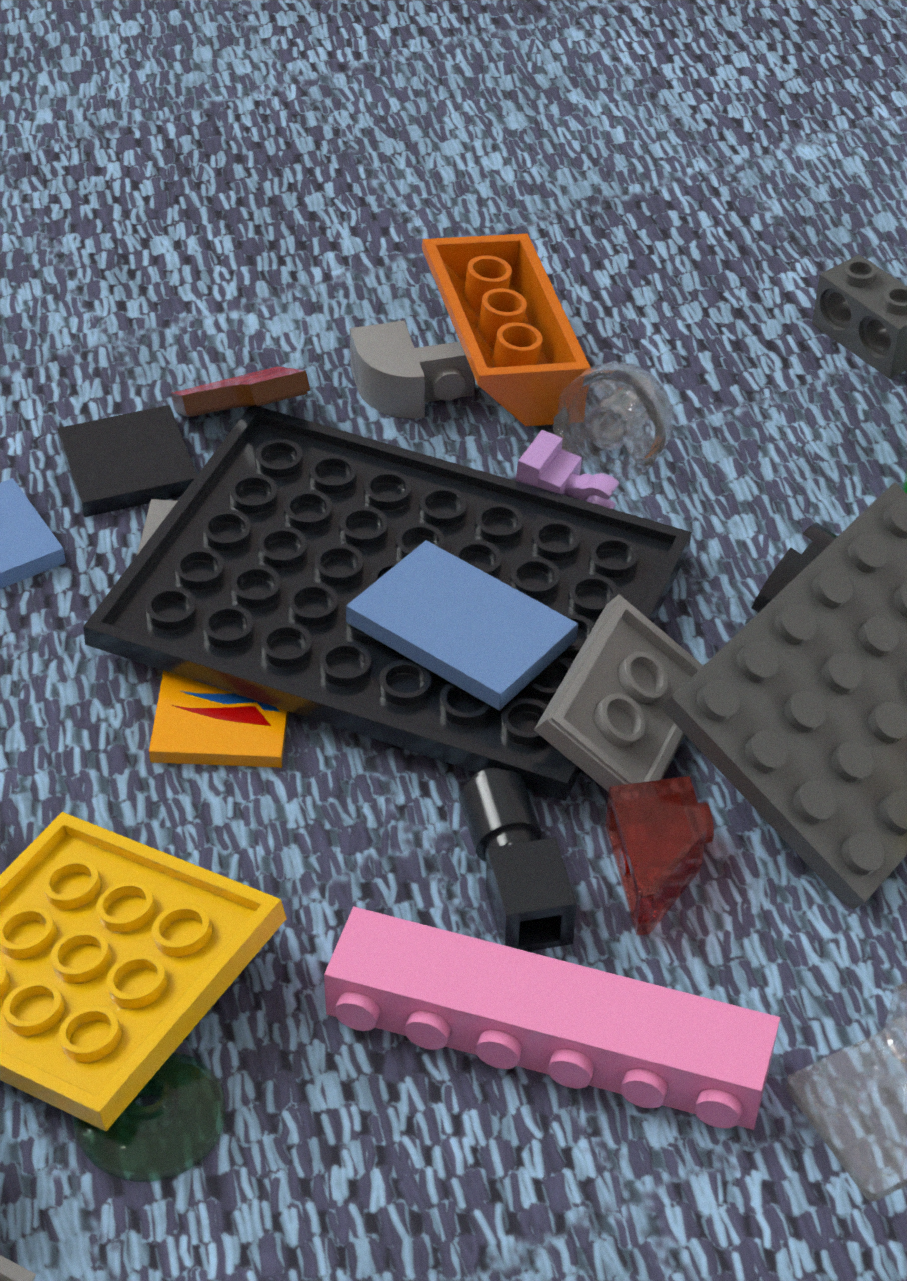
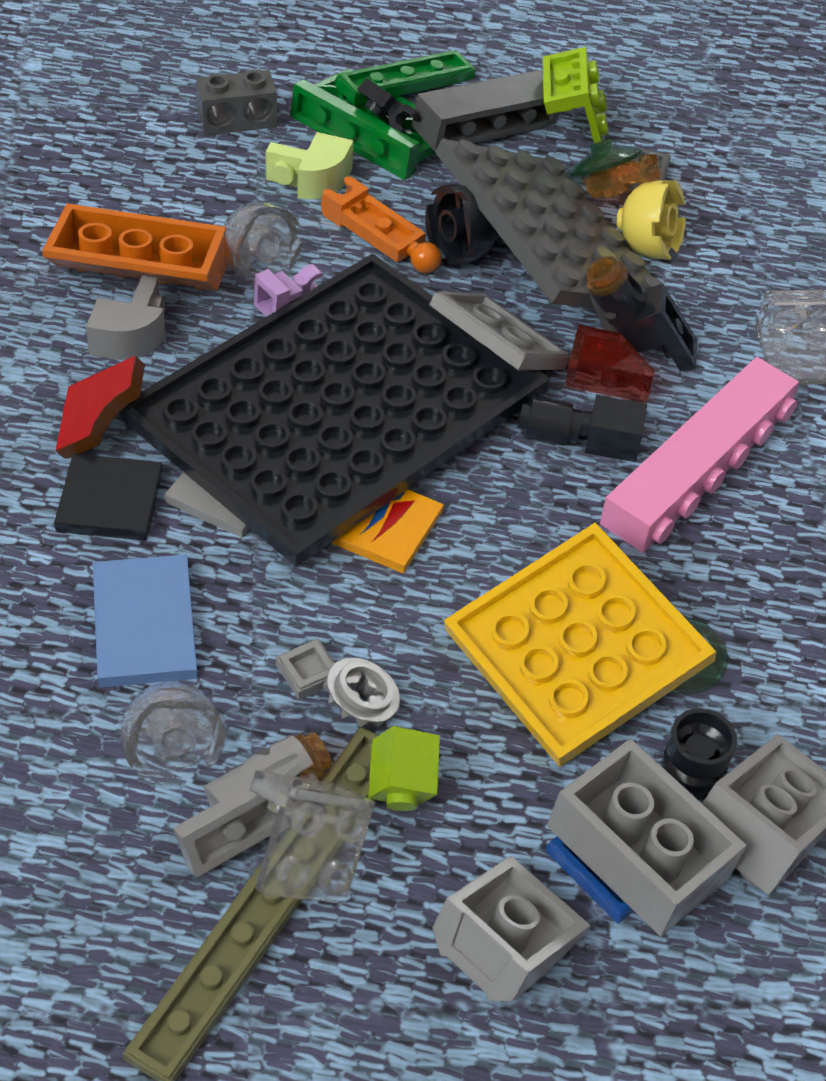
camera: 70 degrees left, 5 degrees up
(462, 624) = (403, 373): medium blue tile -> none
(753, 840) = (640, 315): none -> black plate
(760, 529) = (380, 226): none -> orange plate
(821, 433) = (311, 170): none -> yellowish green brick

